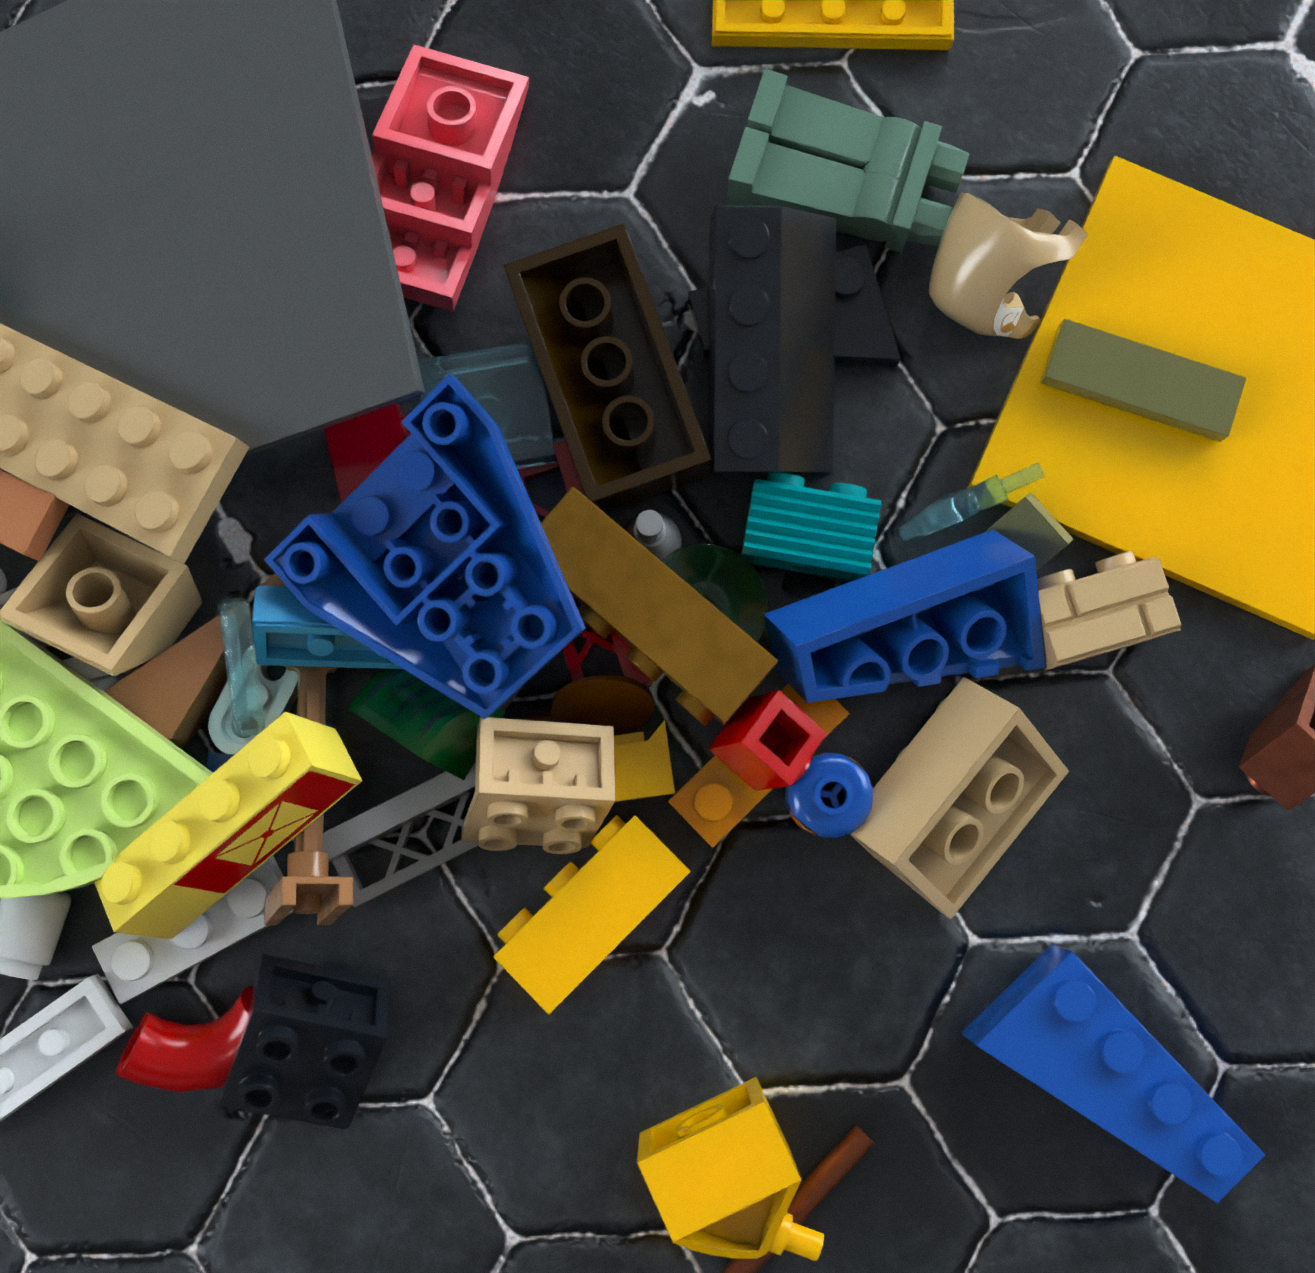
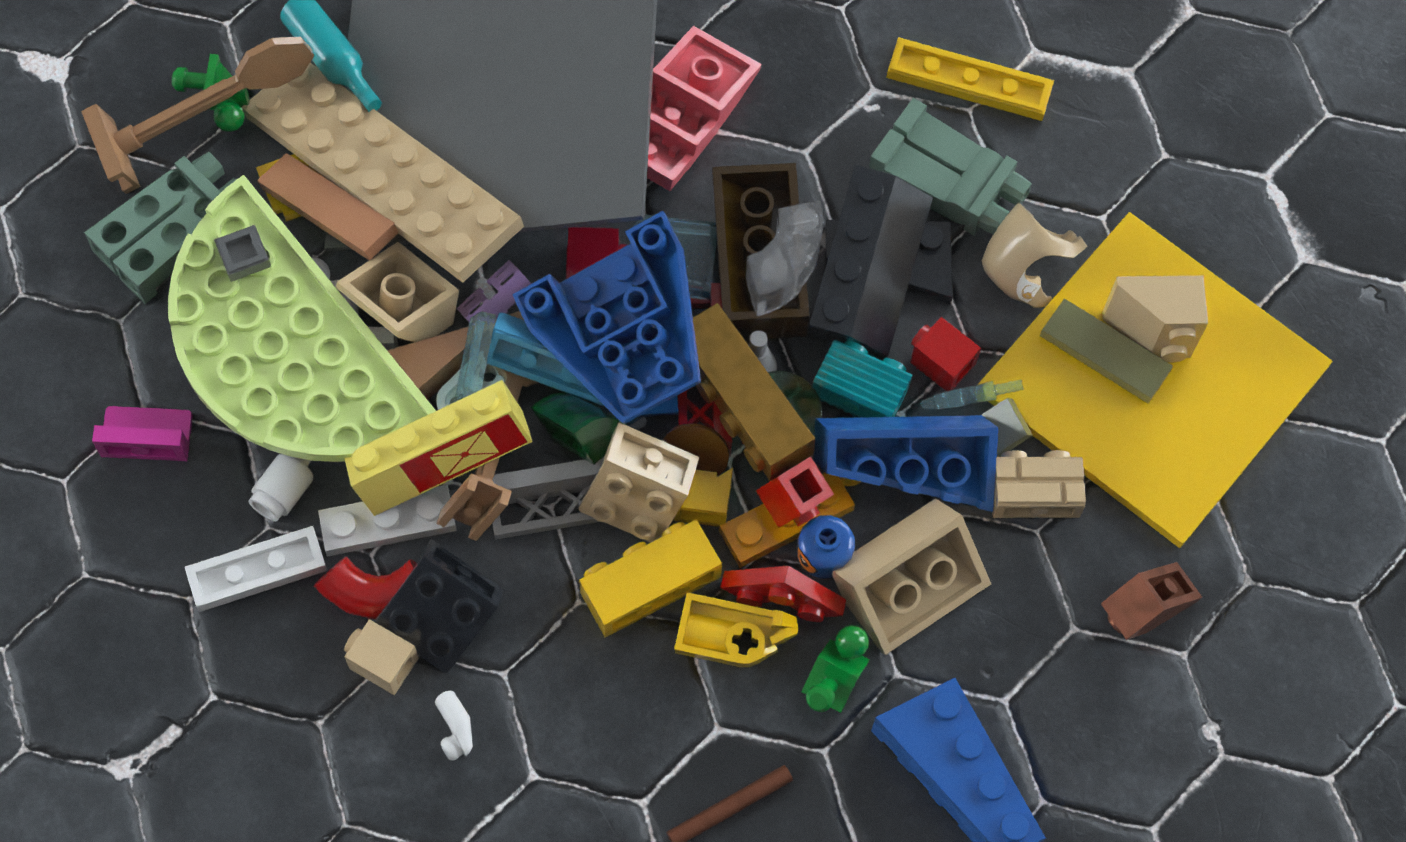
camera: 10 degrees right, 15 degrees down
(242, 1147) = (380, 656): none -> tan brick
(250, 568) = (502, 299): none -> lavender piece
(385, 1206) = (459, 723): none -> white arm
(660, 386) = (788, 260): none -> clear brick
(707, 960) = (712, 625): none -> yellow piece
(726, 1178) = (690, 754): yellow piece -> none
(789, 891) = (784, 587): none -> red plate
(893, 974) = (837, 670): none -> green piece
(913, 450) = (944, 354): none -> red brick
(1222, 308) = (1159, 313): none -> tan slope

